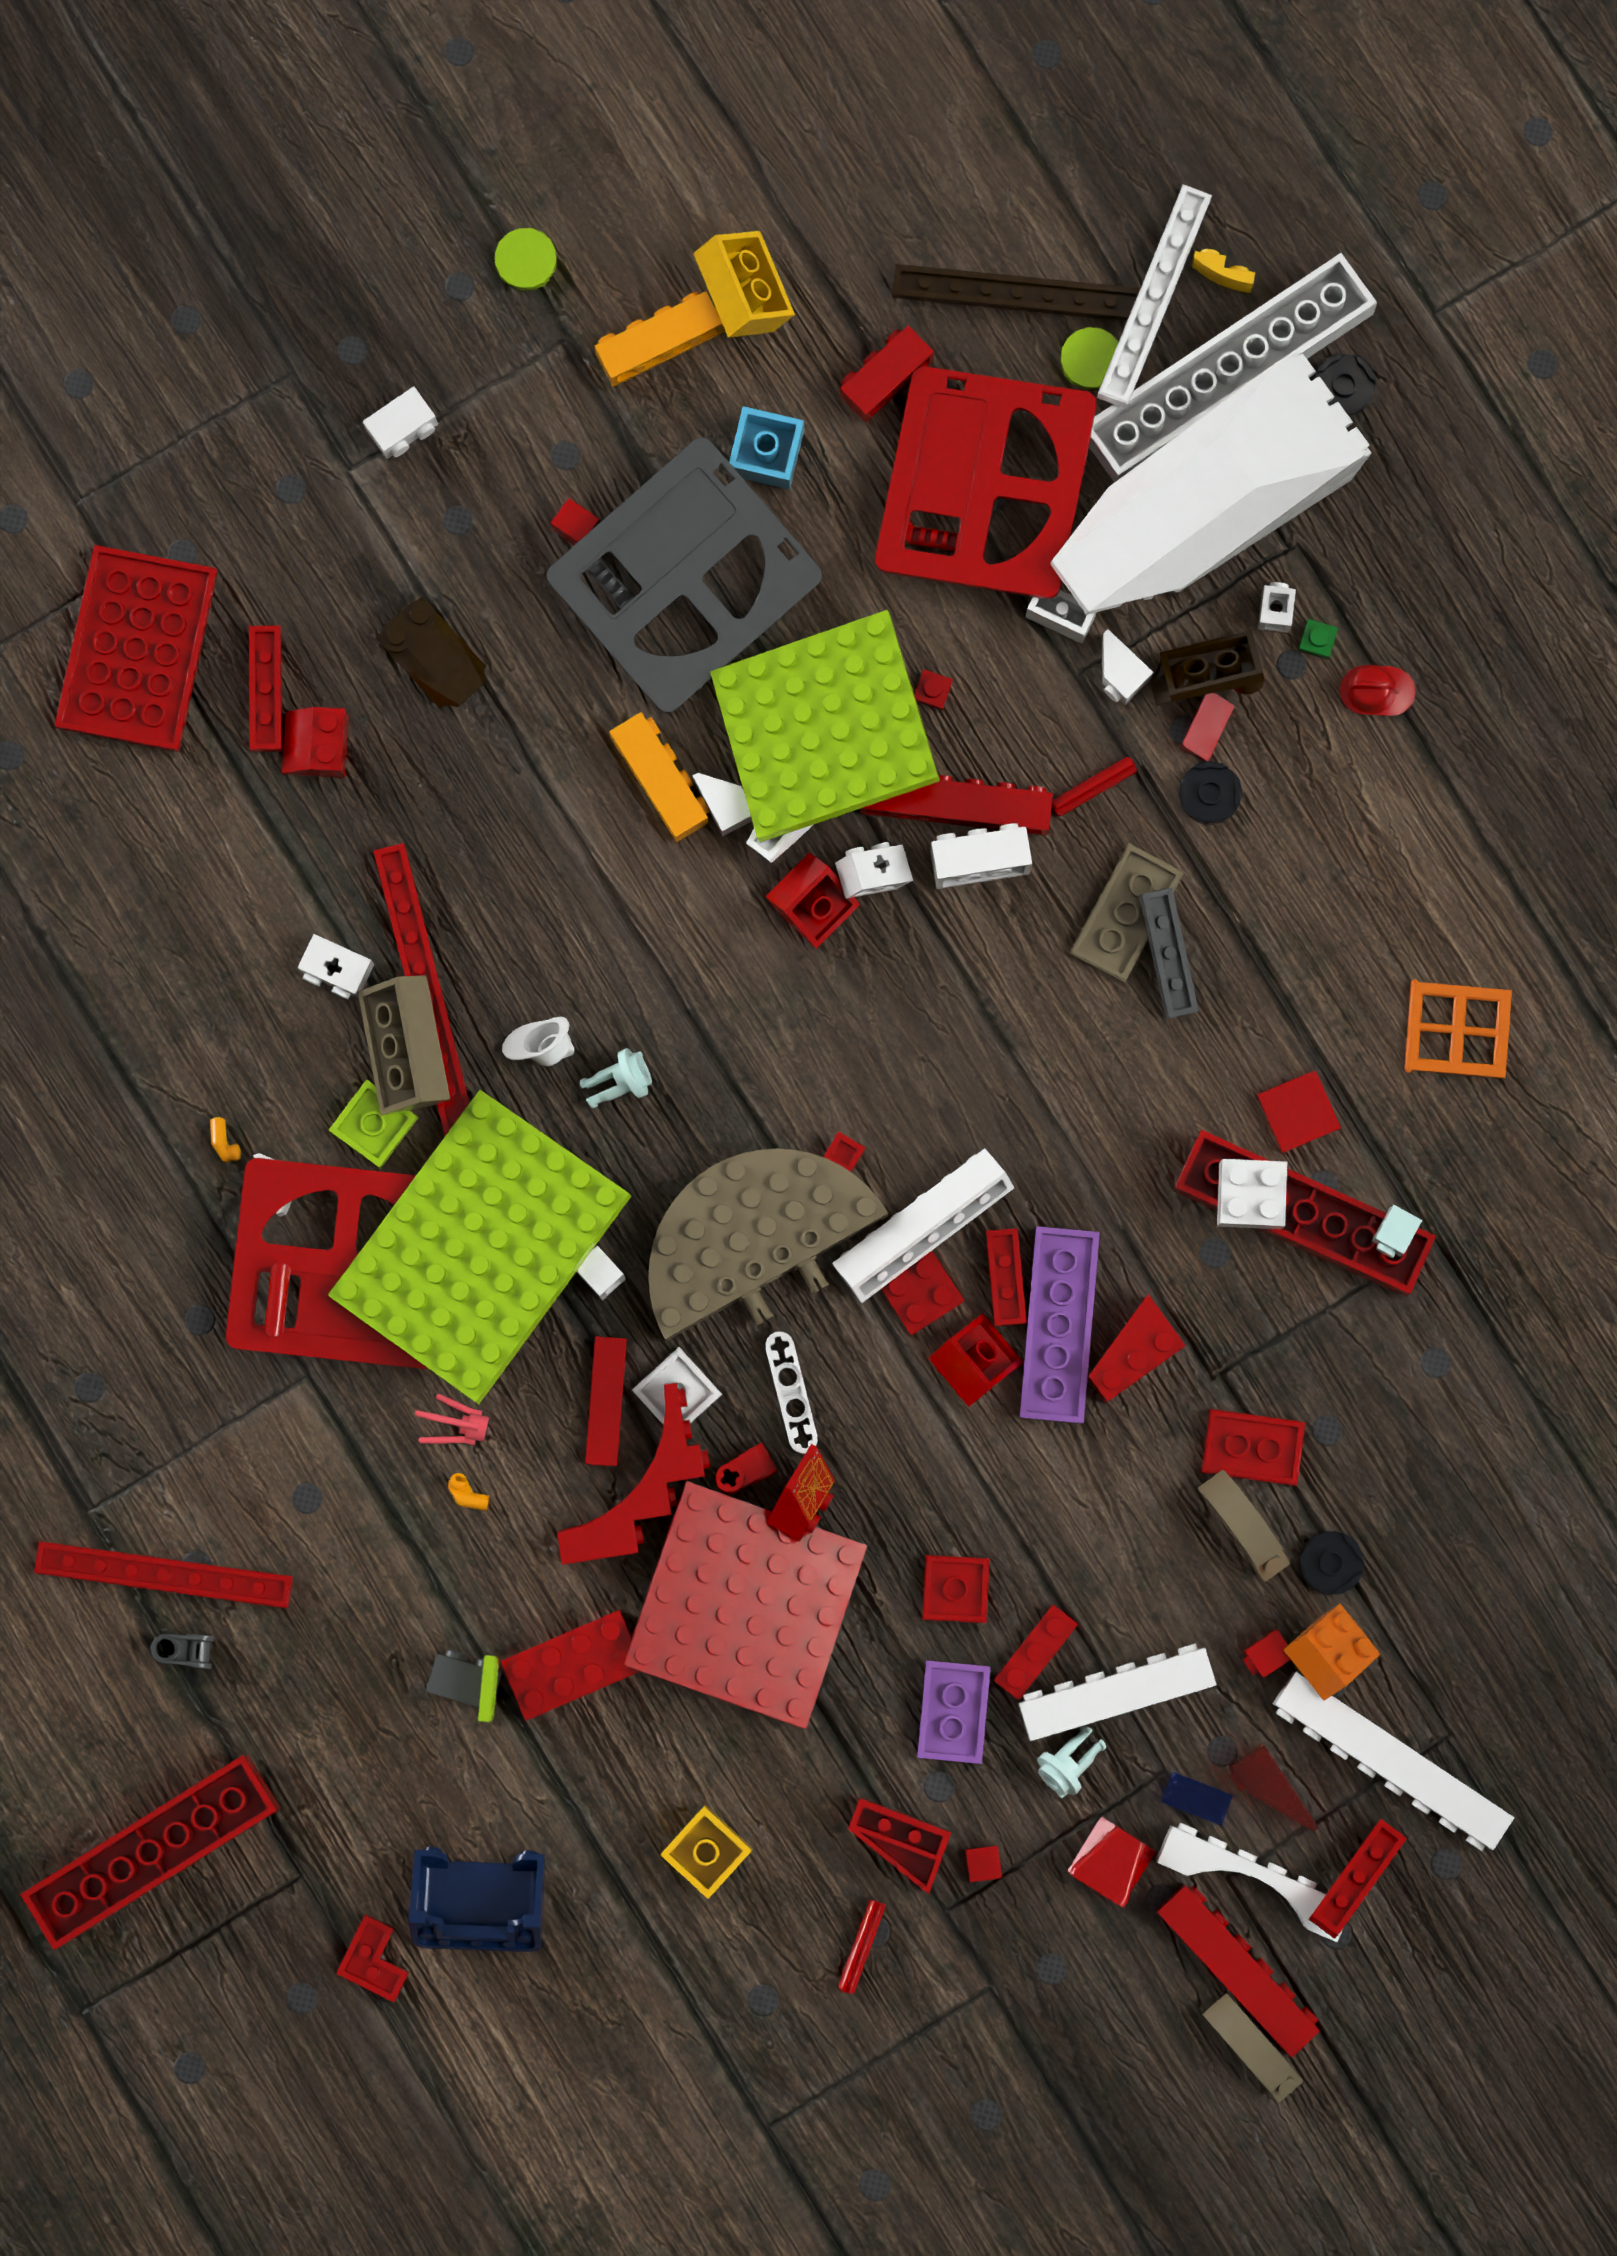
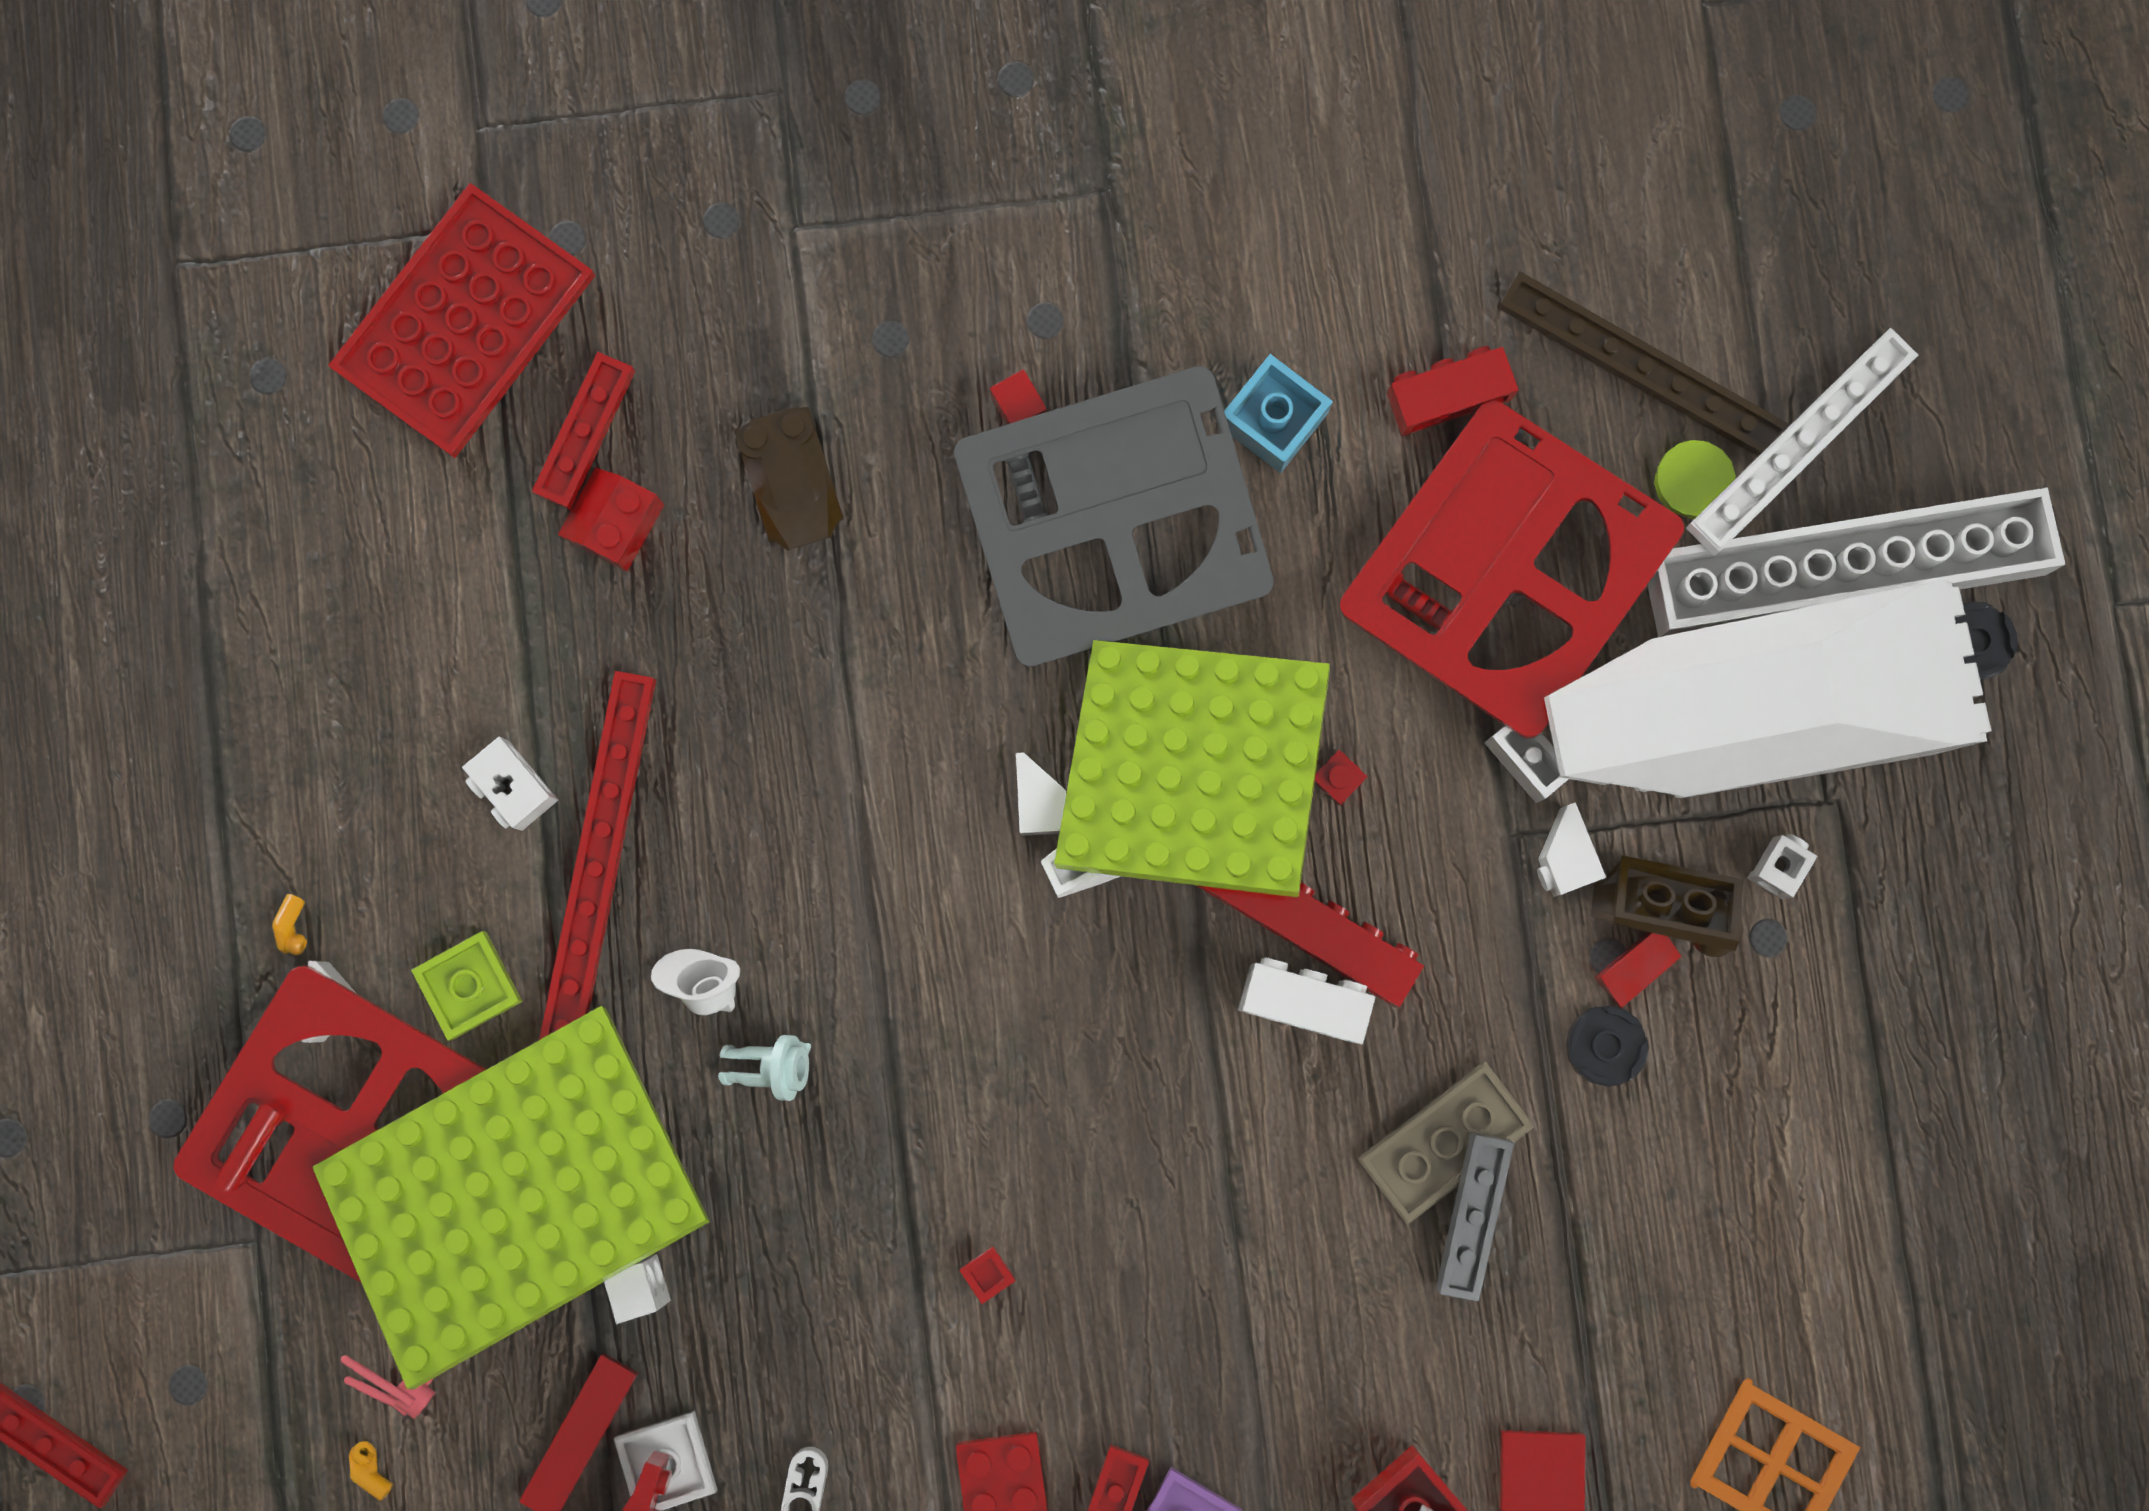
camera: 25 degrees right, 0 degrees up
(401, 423) = (875, 200): white brick -> none
(403, 1044) = (539, 914): dark tan slope -> none
(525, 259) = (1103, 80): lime tile -> none
(659, 337) = (1211, 234): light orange brick -> none
(659, 777) = (979, 736): light orange brick -> none
(744, 283) = (1335, 215): yellow brick -> none
(747, 1228) = (832, 1314): dark tan brick -> none
(812, 900) = (1088, 959): red slope -> none
(873, 870) = (1174, 960): white brick -> none
(923, 1225) = (1038, 1406): white brick -> none
(1093, 786) = (1475, 976): red axle -> none
(1211, 265) = (1883, 437): yellow slope -> none
(1318, 639) = (1813, 923): green plate -> none
(1377, 690) = (1856, 1015): red piece -> none

